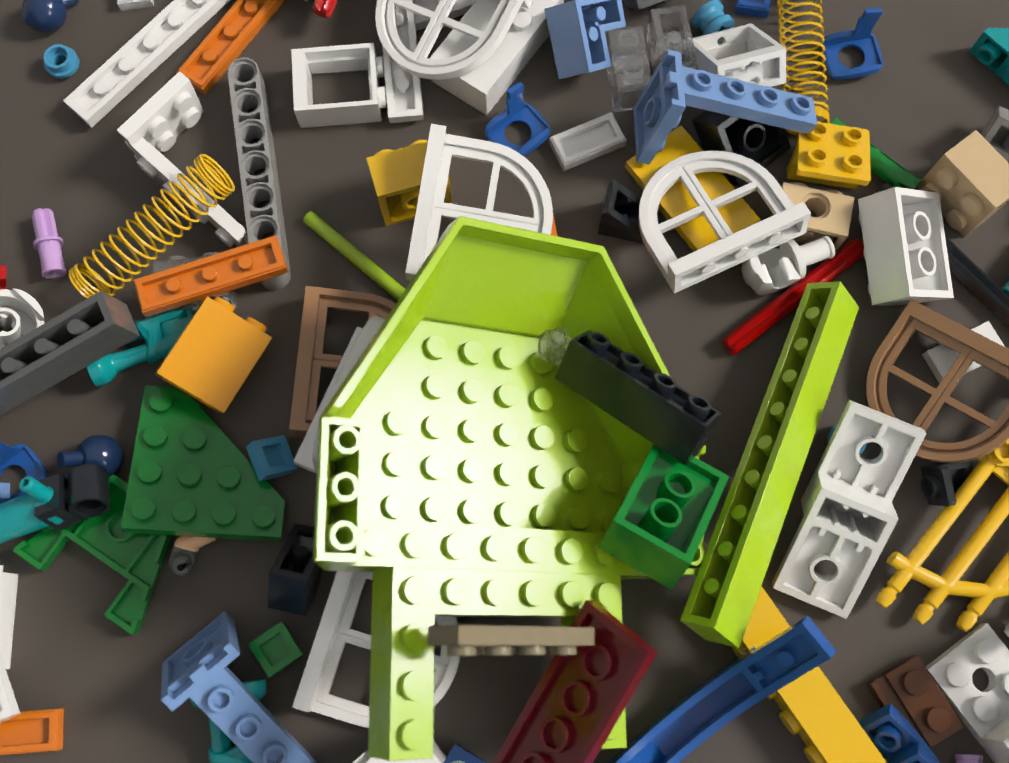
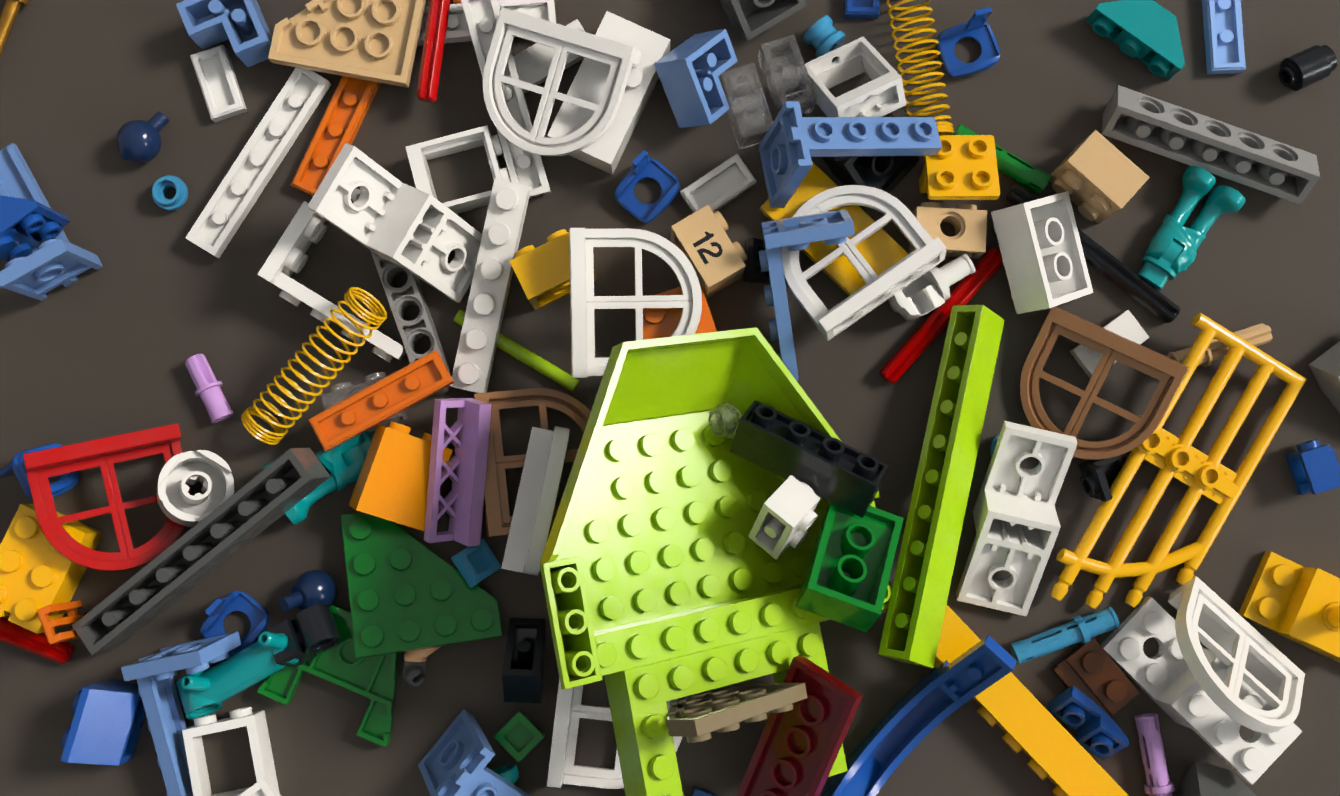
camera: 15 degrees left, 10 degrees up
(268, 107) = (398, 222): none -> white bracket
(283, 361) = (465, 470): none -> lavender fence
(344, 189) = (490, 285): none -> white plate
(571, 186) = (709, 249): none -> tan brick
(601, 452) = (785, 517): none -> white brick
(658, 178) = (797, 235): none -> medium blue bracket
(899, 645) = (1078, 630): none -> dark azure pin

